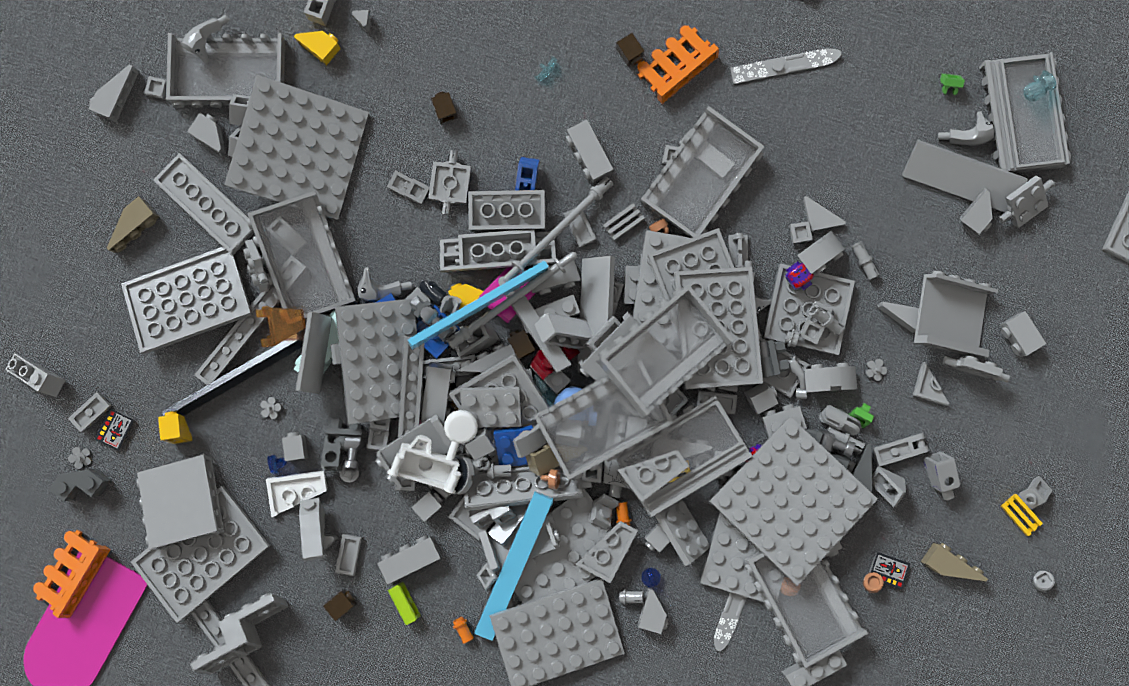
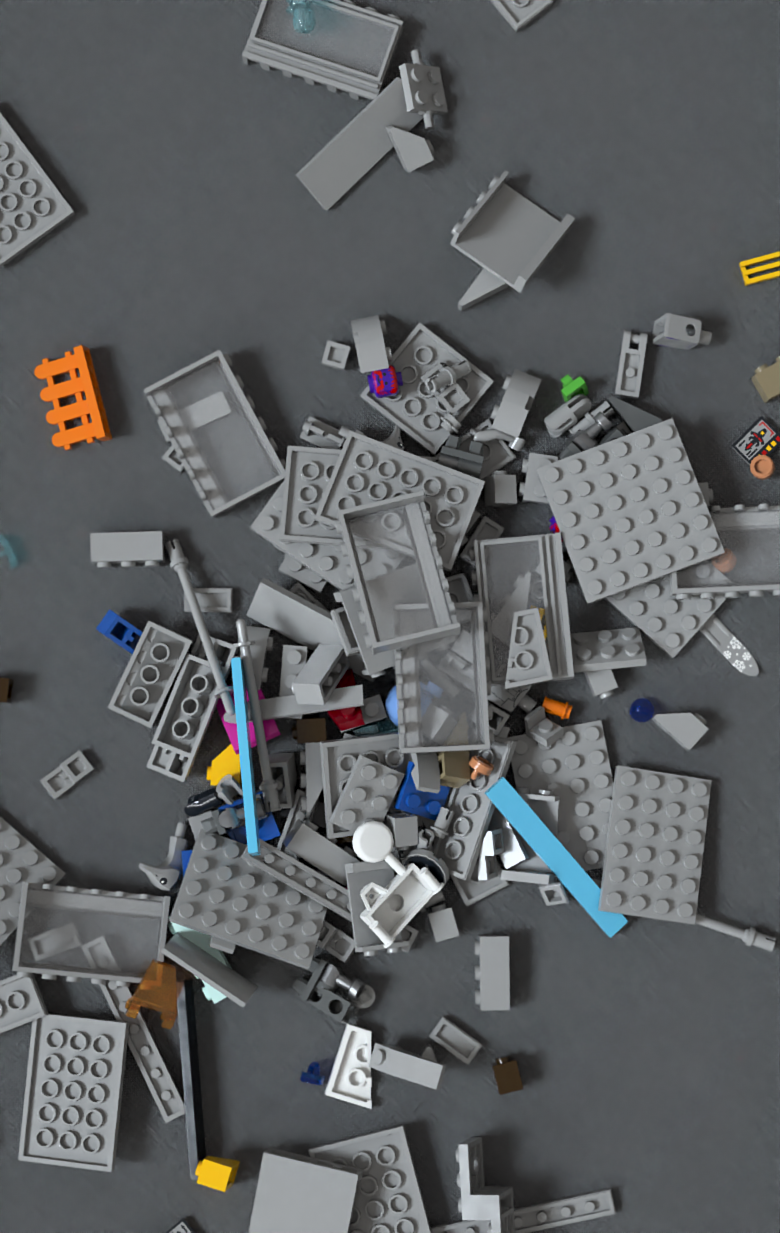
camera: 60 degrees left, 0 degrees up
(255, 266) = (76, 991): light grey plate -> none
(270, 408) = (245, 1052): light grey plant -> none
(294, 446) = (304, 1044): light grey brick -> none
(404, 603) = (540, 1002): lime brick -> none
(449, 182) = (85, 724): light grey plate -> none
(463, 629) = (600, 949): orange pin -> none
(609, 552) = (591, 743): light grey wing -> none
(618, 216) = (223, 528): light grey tile -> none
(630, 50) = (33, 445): dark brown brick -> none
(631, 597) = (653, 742): light grey pin -> none
(662, 223) = (250, 509): nougat tile -> none
(784, 65) = (135, 280): light grey piece -> none
(820, 217) = (328, 325): light grey tile -> none
(865, 260) = (401, 299): light grey pin -> none
(876, 369) = (529, 347): light grey plant -> none
(889, 485) = (664, 397): light grey slope -> none
(928, 387) = (577, 299): light grey tile -> none
(951, 81) = (246, 101): bright green tile -> none
(972, 366) = (574, 242): light grey plate -> none
(980, 134) = (322, 101): light grey animal -> none
(1022, 334) = (567, 168): light grey brick -> none
(1036, 493) = (749, 240): light grey bracket -> none

